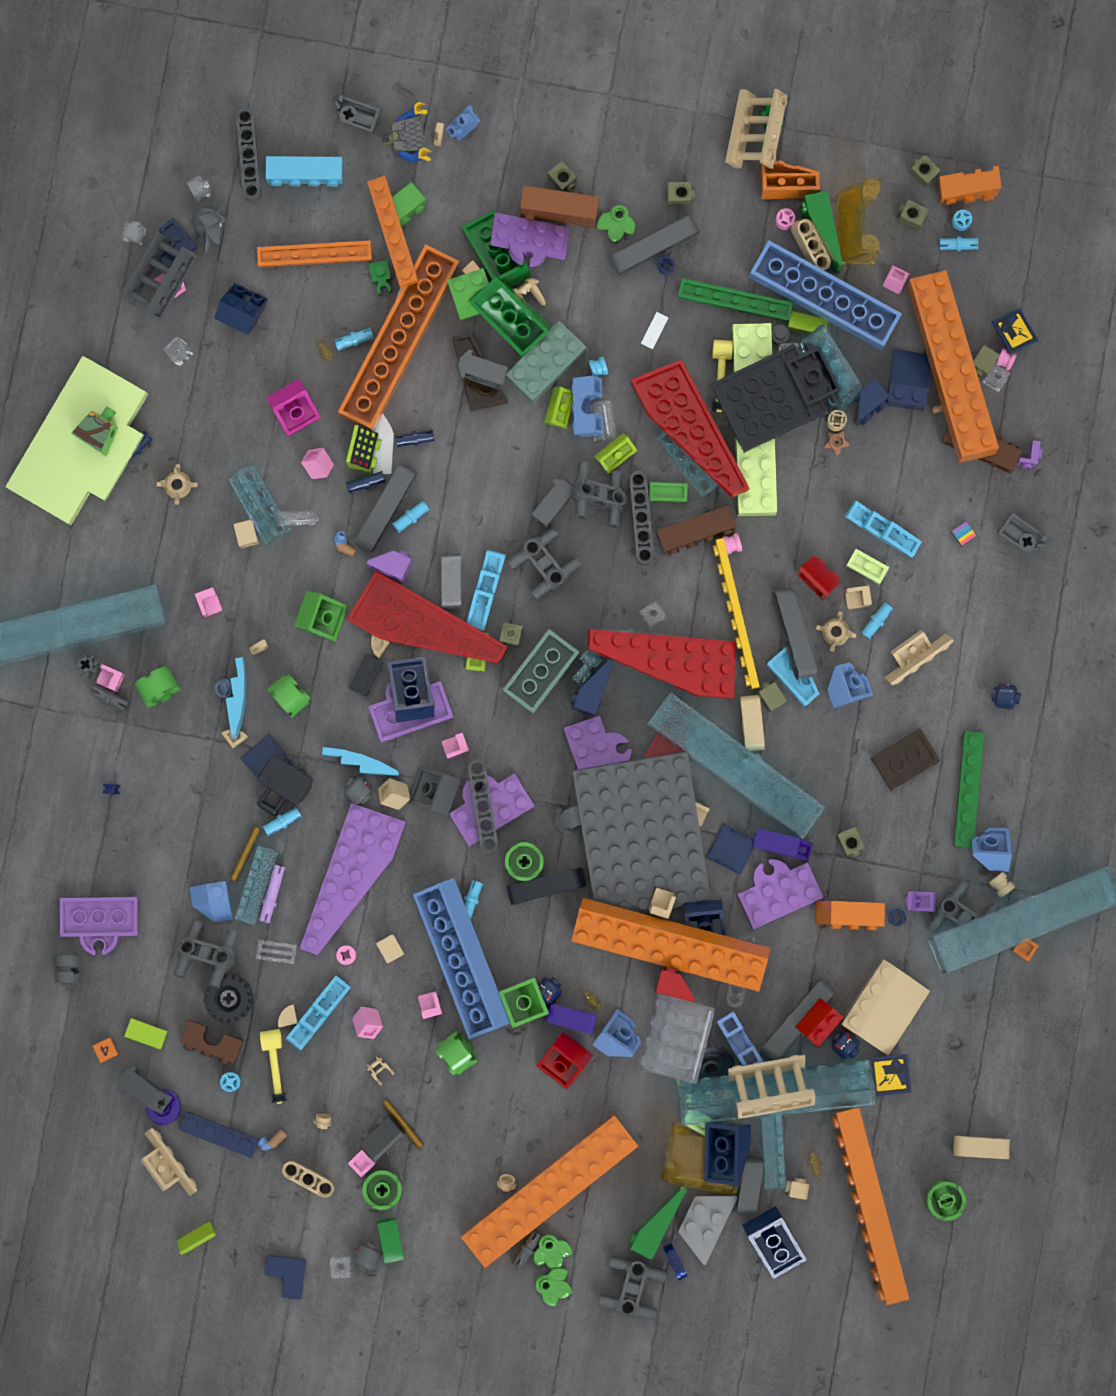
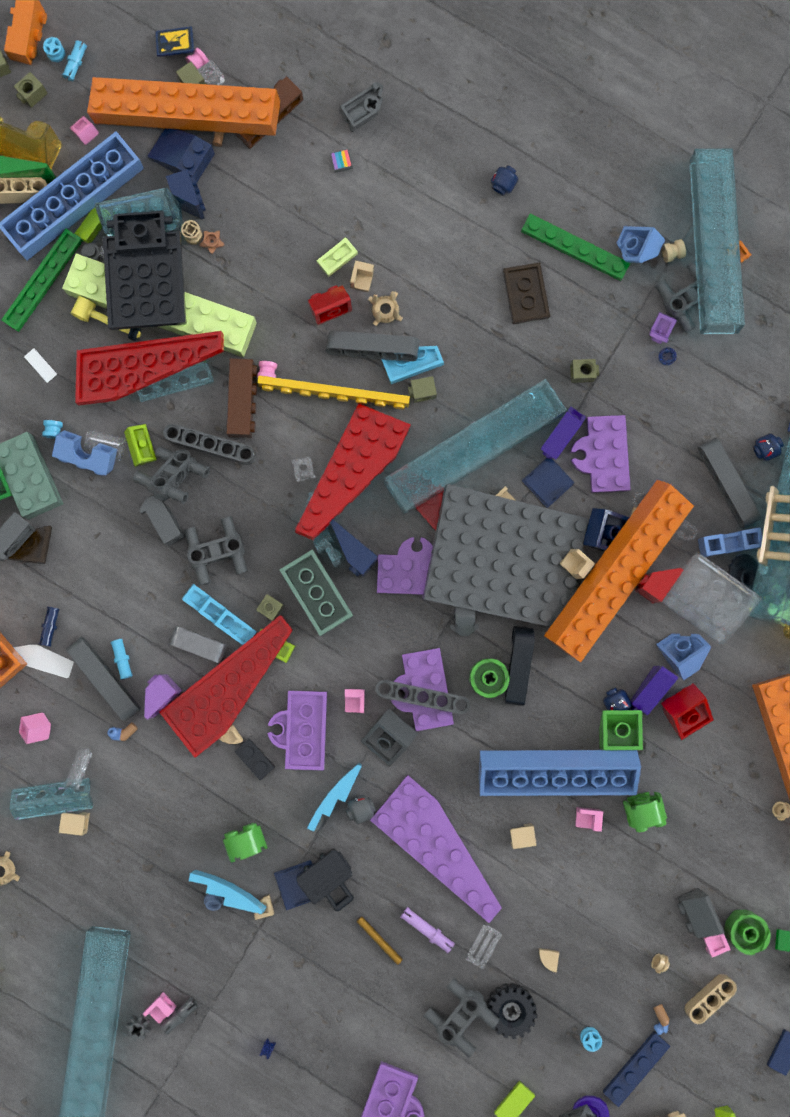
camera: 70 degrees left, 0 degrees up
(157, 686) = (186, 967): bright green brick -> none
(208, 602) = (125, 884): bright pink panel -> none
(213, 901) = (412, 989): medium blue slope -> none
(226, 1050) = (537, 1057): reddish brown arch -> none
(256, 885) = (413, 942): clear light blue fence -> none
(258, 647) = (187, 851): tan tile -> none
(271, 1041) = (567, 985): light yellow piece -> none
(282, 821) = (362, 893): medium azure pin -> none
(318, 1013) = (557, 928): medium azure slope -> none
(320, 615) = (181, 781): bright green slope -> none
(349, 956) = (509, 877): bright pink wheel -> none
(363, 449) = (38, 679): slope -> none
(365, 482) = (71, 689): dark blue pin -> none
(367, 1022) = (583, 885): bright pink panel -> none
(384, 1065) = (633, 896): tan piece -> none
(393, 794) = (377, 776): tan panel -> none
(403, 1124) = (690, 887): pearl gold bar -> none
(411, 689) = (285, 722): dark blue slope -> none
(472, 897) = (503, 740): medium azure pin -> none
(559, 407) = (75, 480): lime slope -> none
(593, 1002) = (642, 663): clear yellow piece -> none
(668, 492) = (196, 410): bright green tile -> none
(752, 722) = (439, 416): tan beam -> none
(819, 1022) = (742, 461): red slope -> none
(848, 686) = (440, 317): medium blue slope -> none
(851, 914) = (651, 396): orange wedge -> none
(877, 620) = (390, 268): medium azure pin -> none
(883, 529) = (308, 230): medium azure slope -> none
(884, 1007) = (744, 399): tan slope -> none
(914, 653) = (434, 246): tan bracket -> none
(1035, 452) = (295, 70): medium lavender bracket -> none

